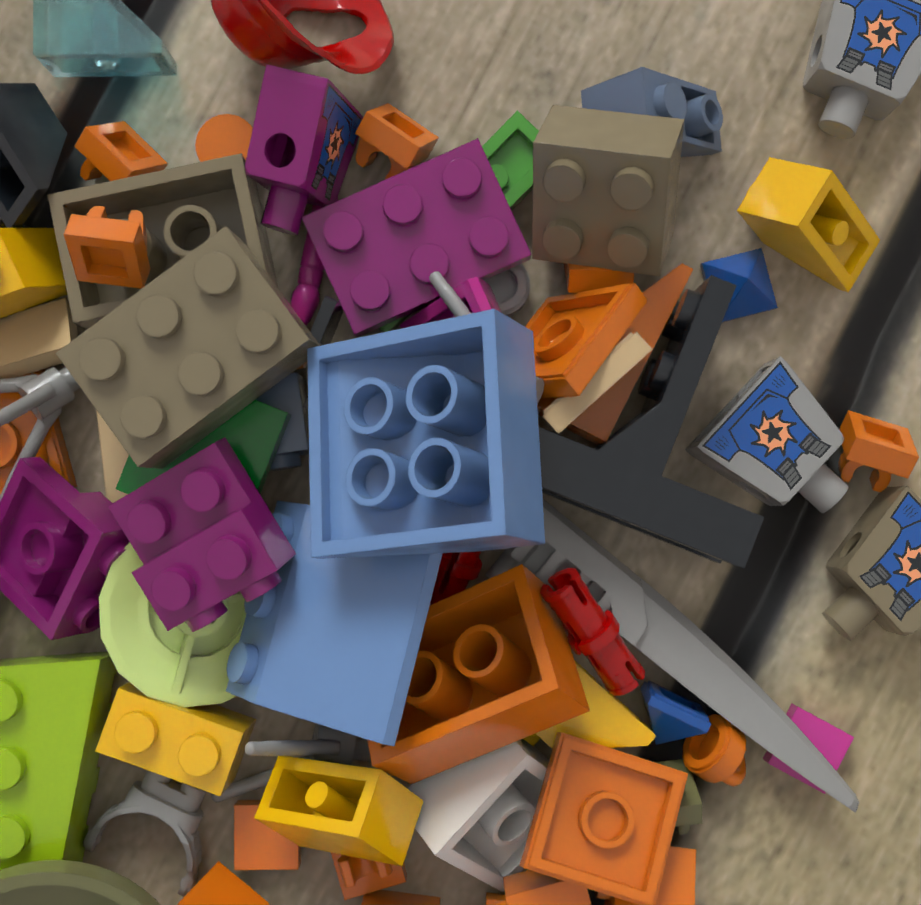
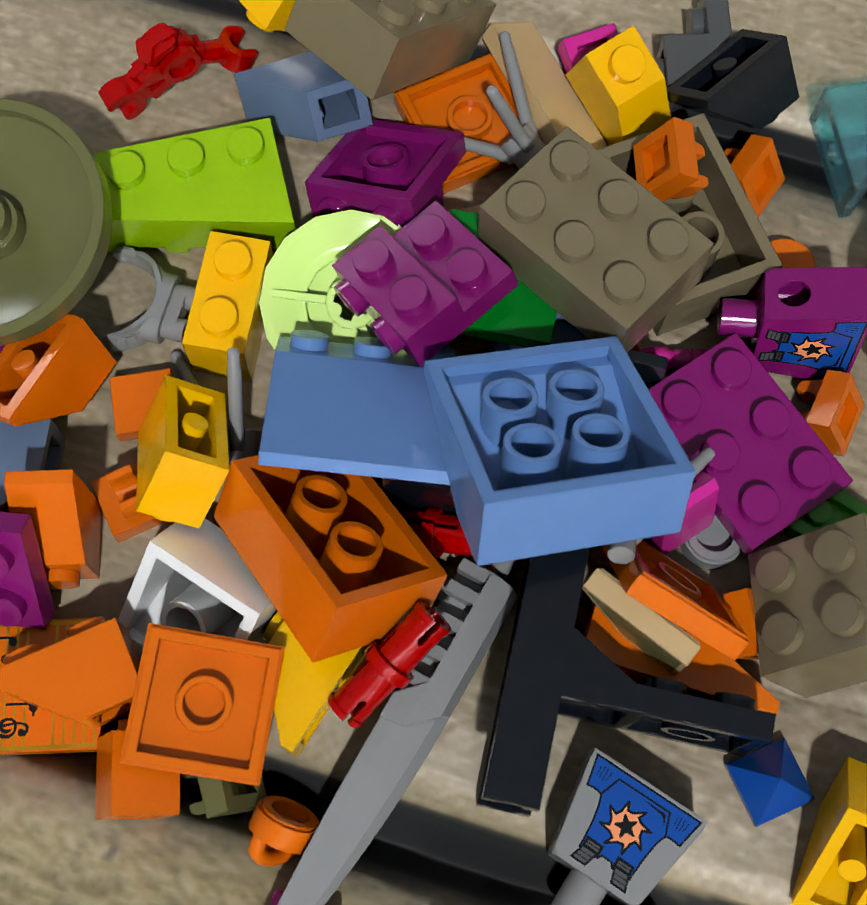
camera: 80 degrees right, 15 degrees down
(672, 715) = (314, 773): blue slope -> none

